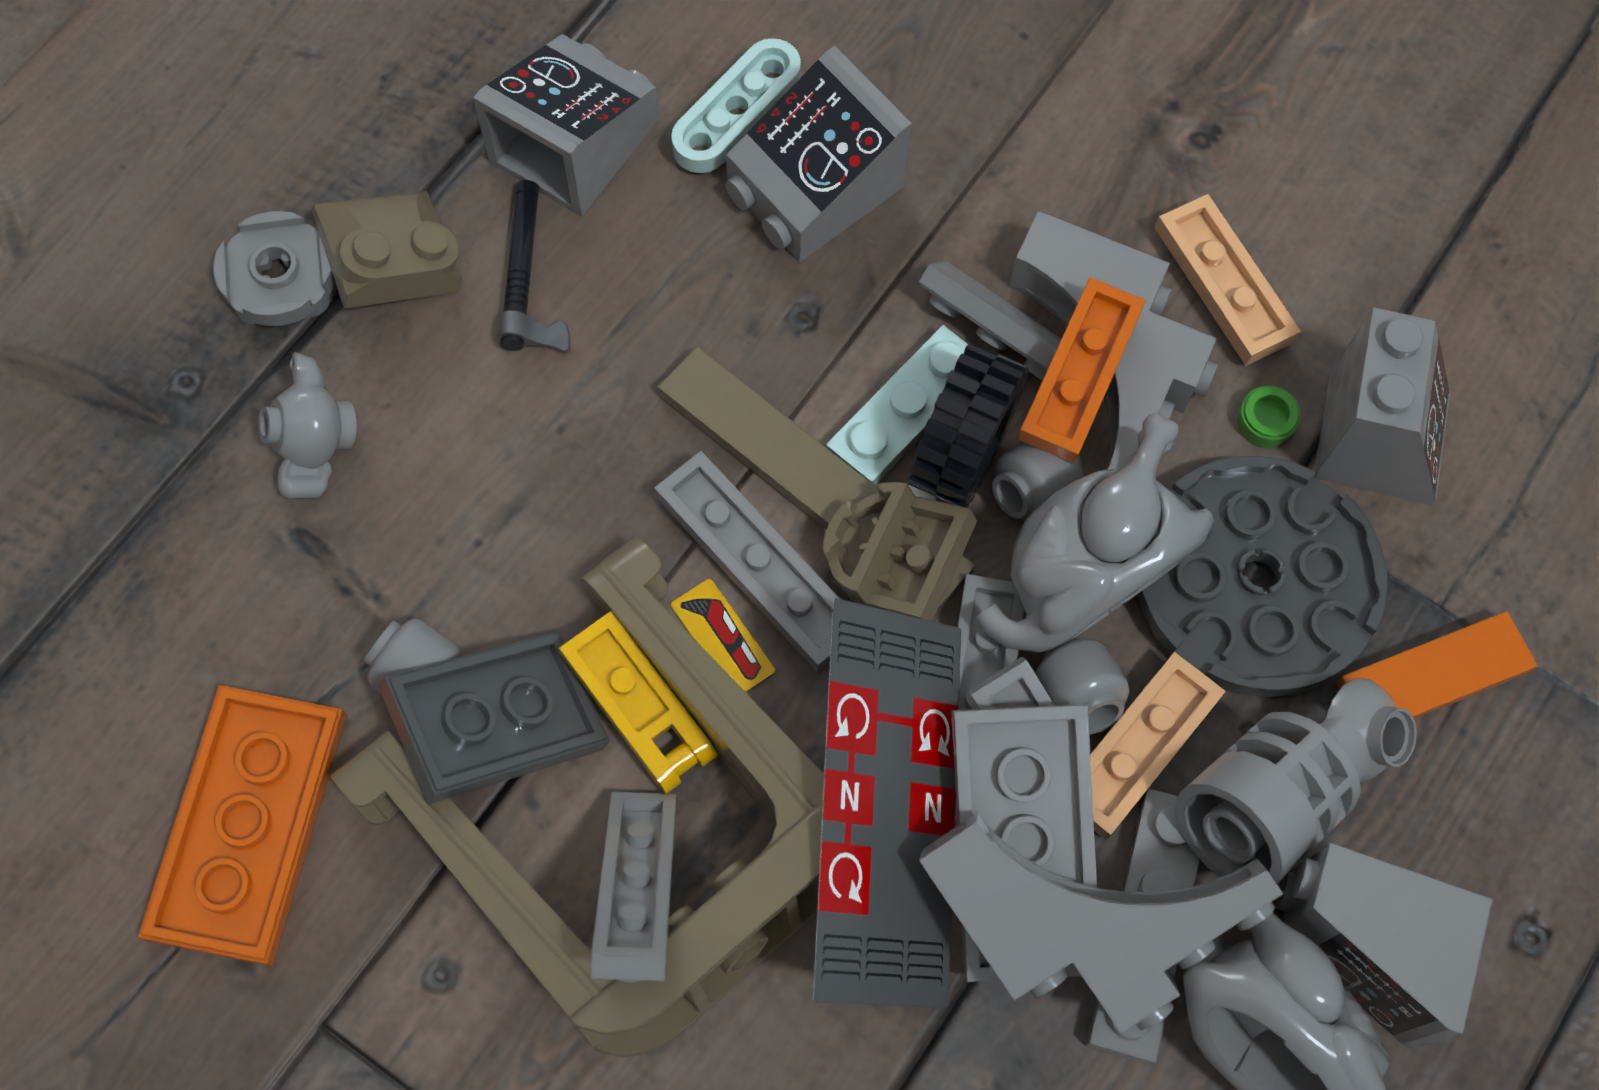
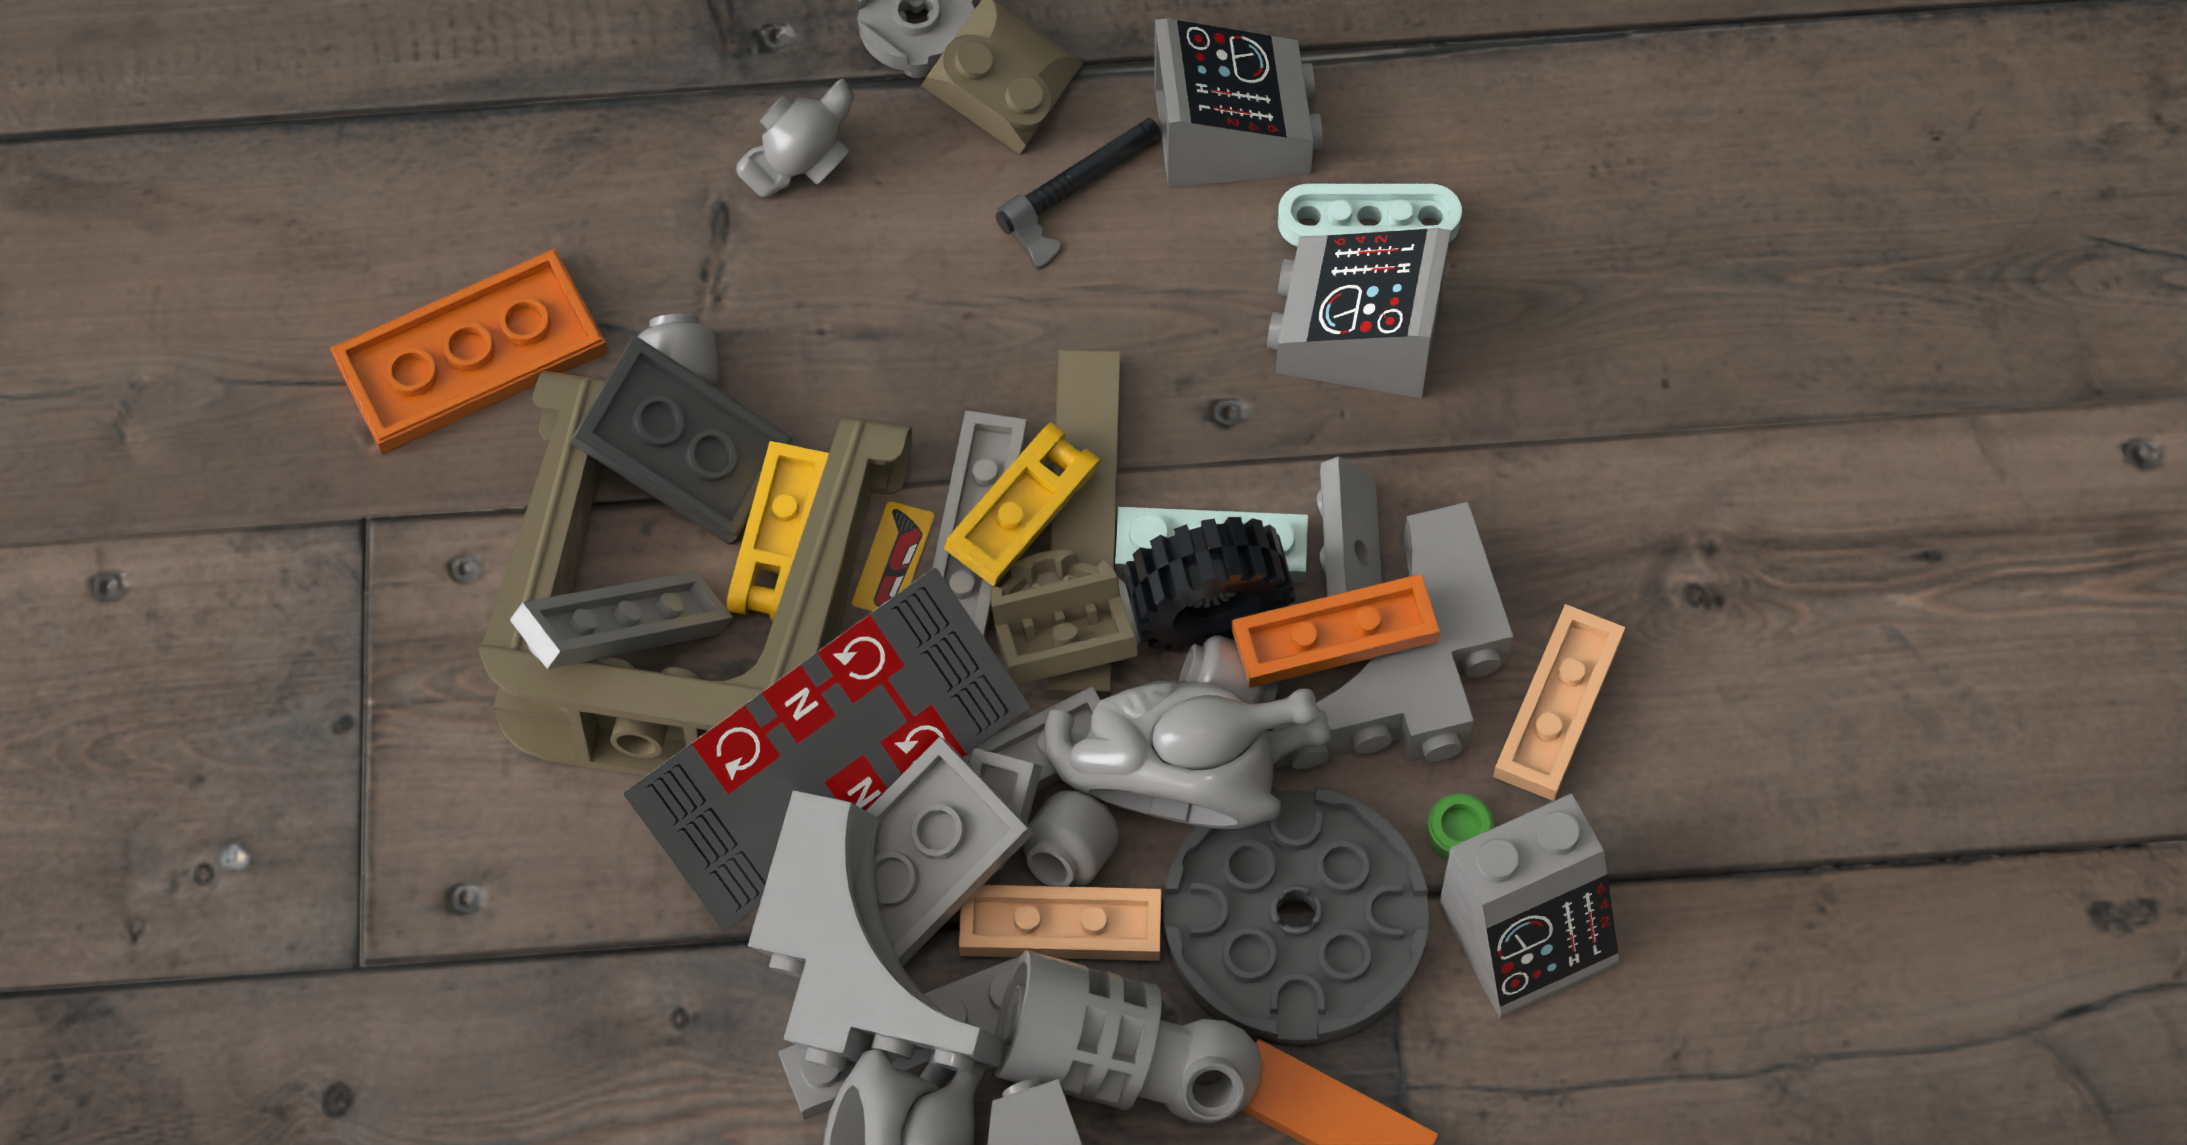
camera: 55 degrees right, 5 degrees down
(779, 507) = (1020, 505): none -> yellow plate

